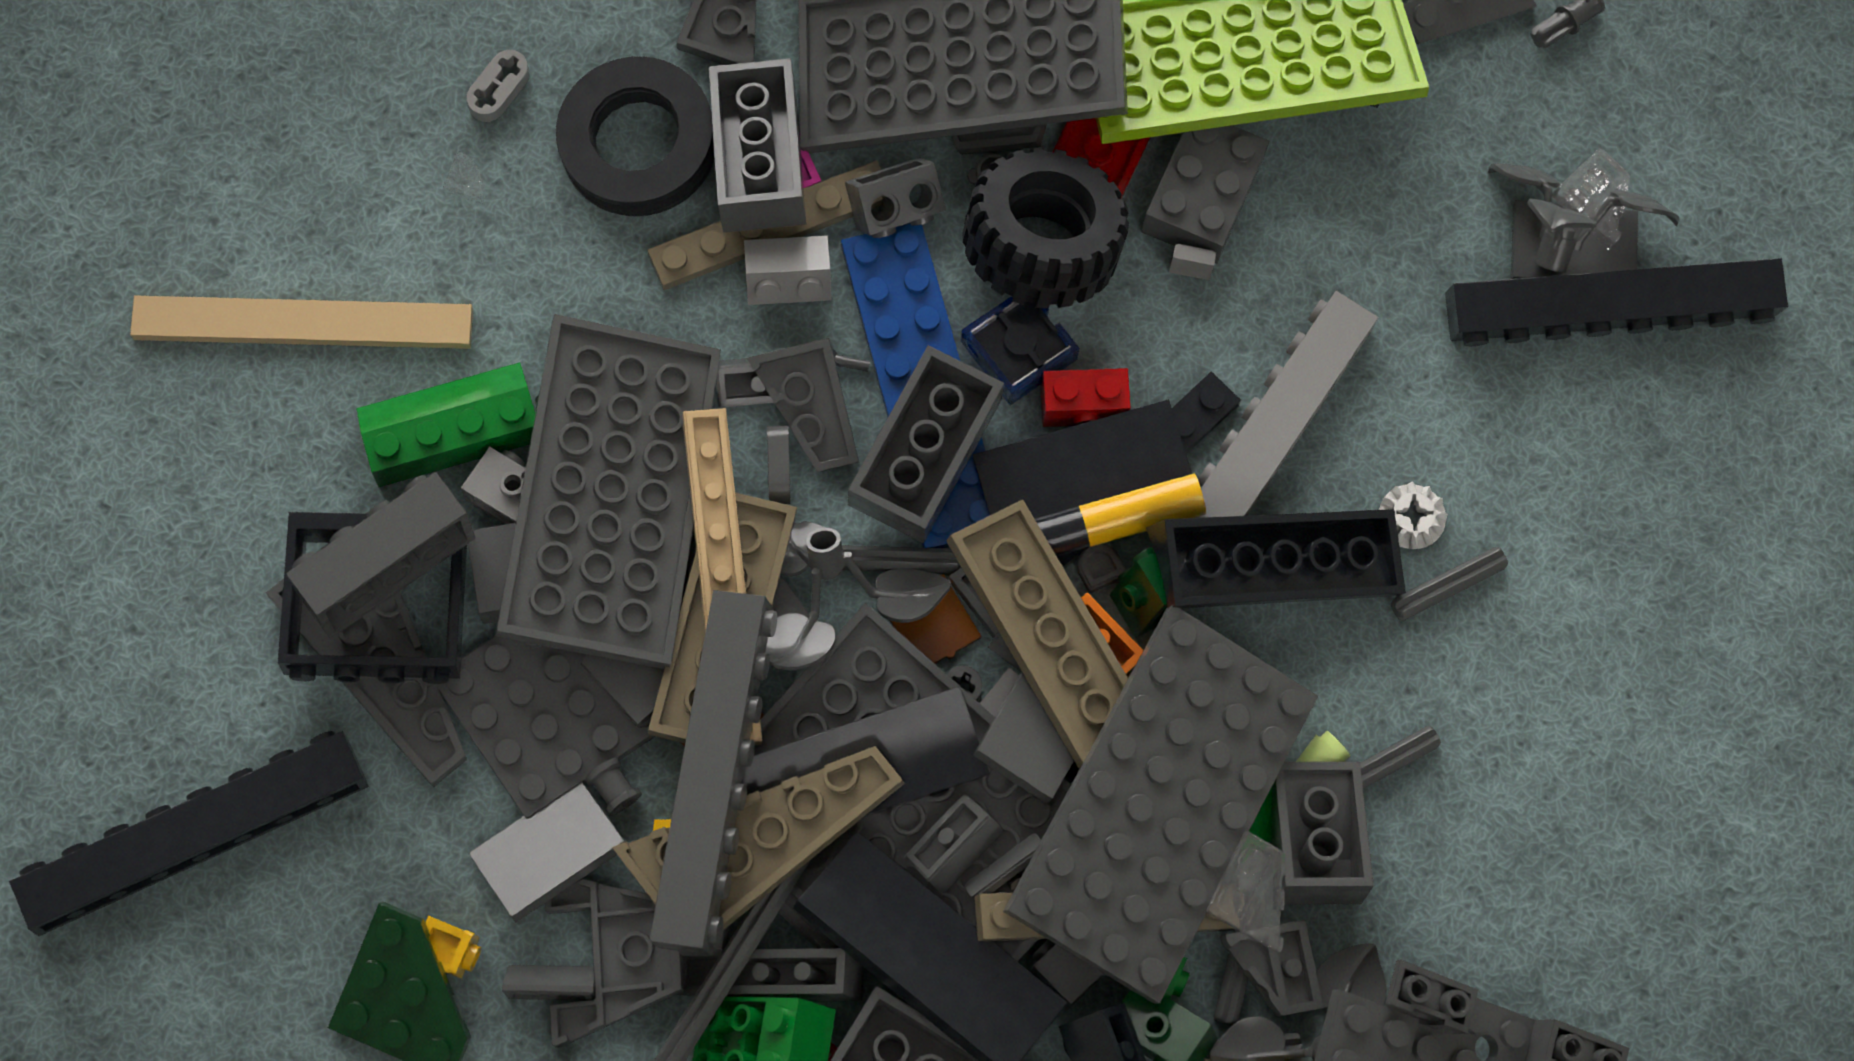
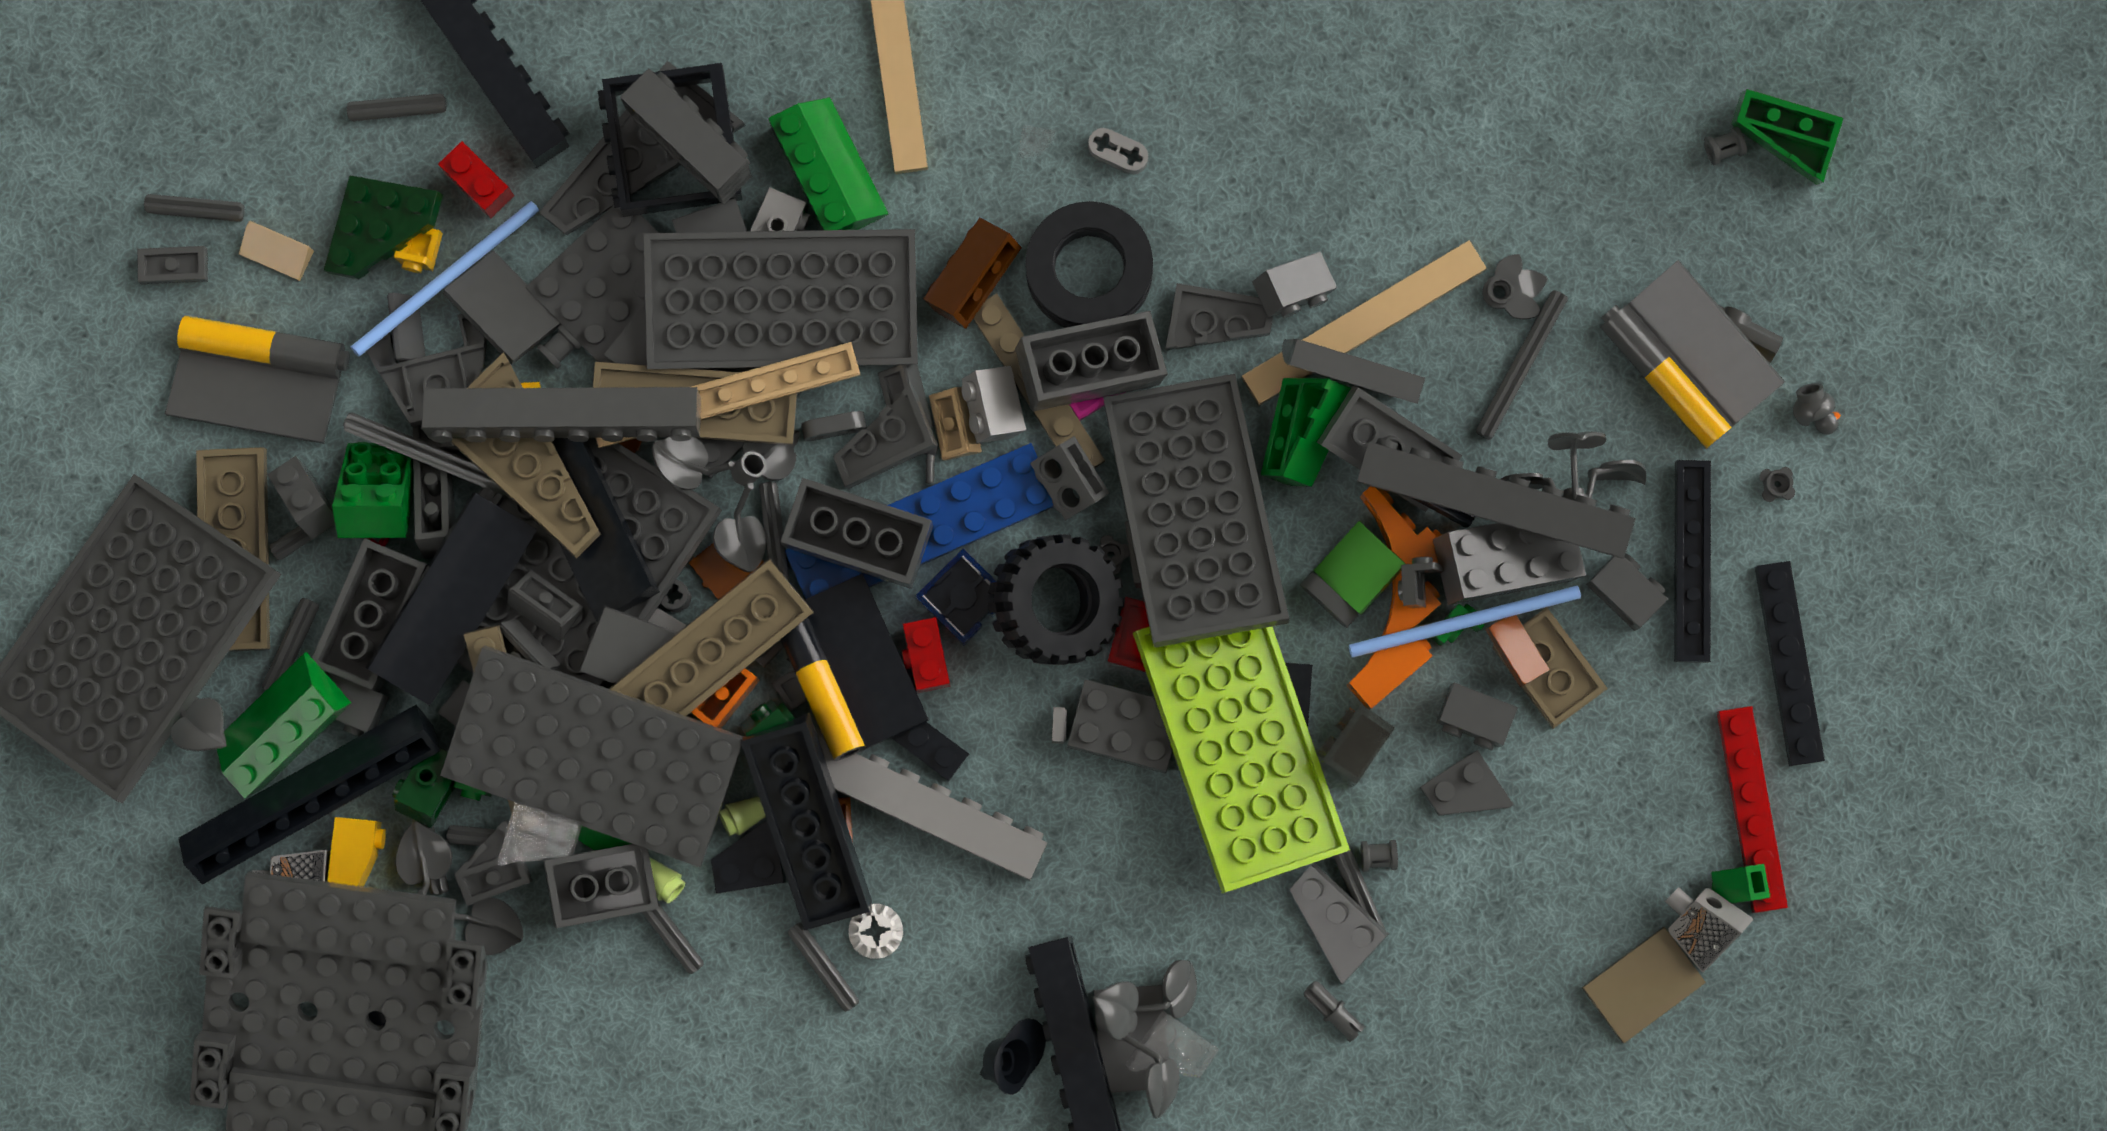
camera: 85 degrees right, 10 degrees up
(247, 954) = (396, 107): none -> dark grey axle
(370, 858) = (476, 179): none -> red brick
(498, 917) = (444, 279): none -> light blue piece
(617, 269) = (972, 273): none -> reddish brown brick
(798, 324) = (952, 424): none -> tan slope
(1248, 635) = (741, 815): none -> yellowish green cone
(1308, 649) = (748, 862): none -> black wing
(1585, 379) = (1014, 1057): none -> black piece

